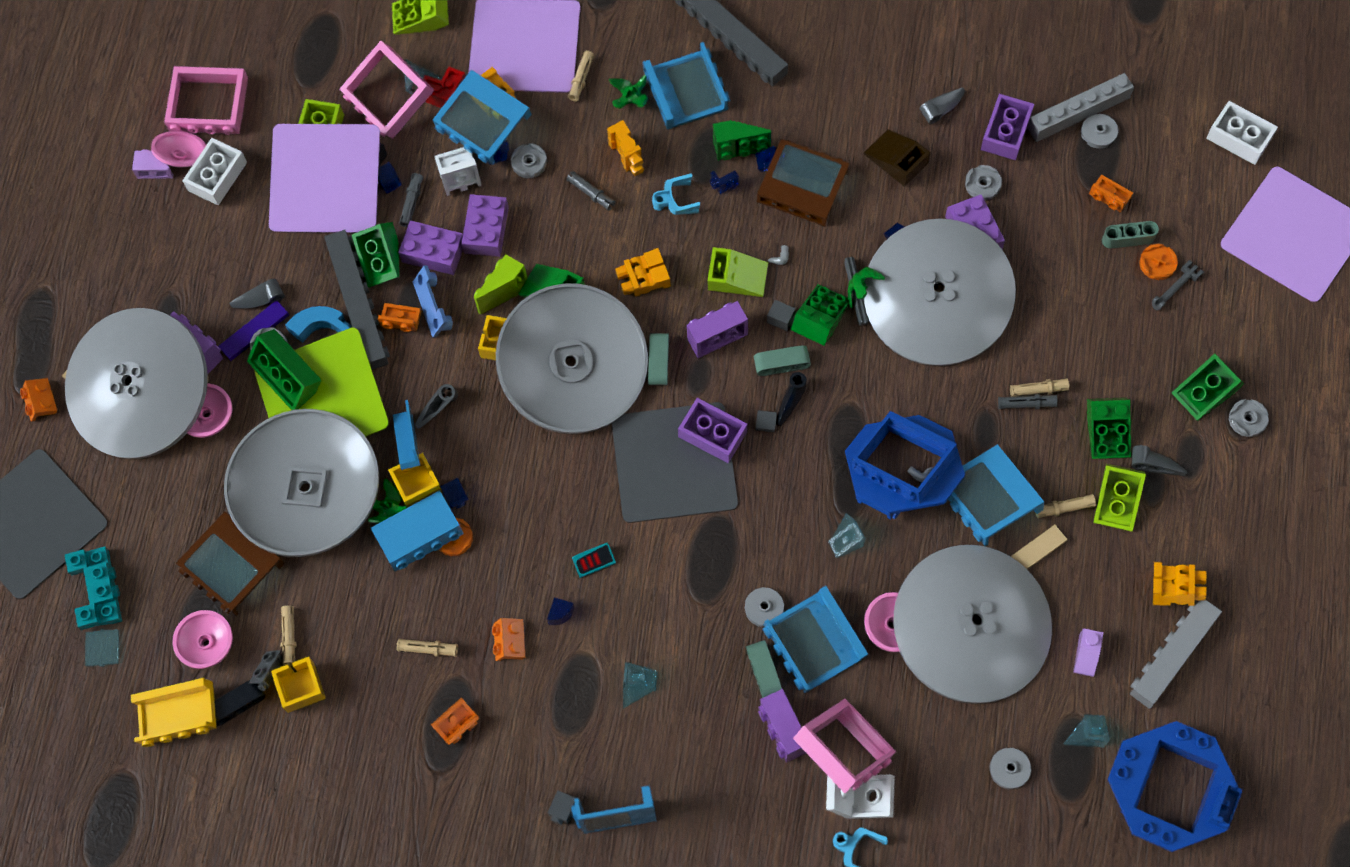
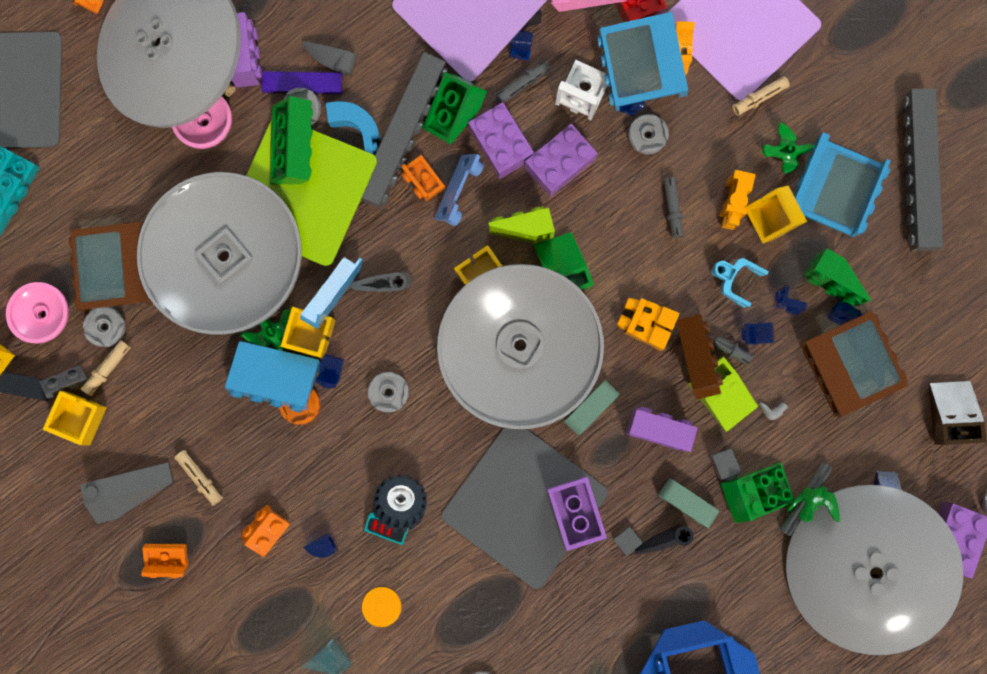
camera: 40 degrees right, 15 degrees up
(256, 601) = (94, 325): none -> light grey plate
(378, 709) = (118, 494): none -> dark grey wedge
(507, 463) = (386, 381): none -> light grey plate
(586, 530) = (399, 503): none -> black wheel
(640, 616) = (381, 607): none -> light orange sticker
(664, 135) = (776, 215): none -> yellow piece
(696, 260) = (698, 356): none -> reddish brown brick
(717, 242) = (732, 350): none -> dark grey axle
(723, 217) = (758, 333): none -> clear blue bracket

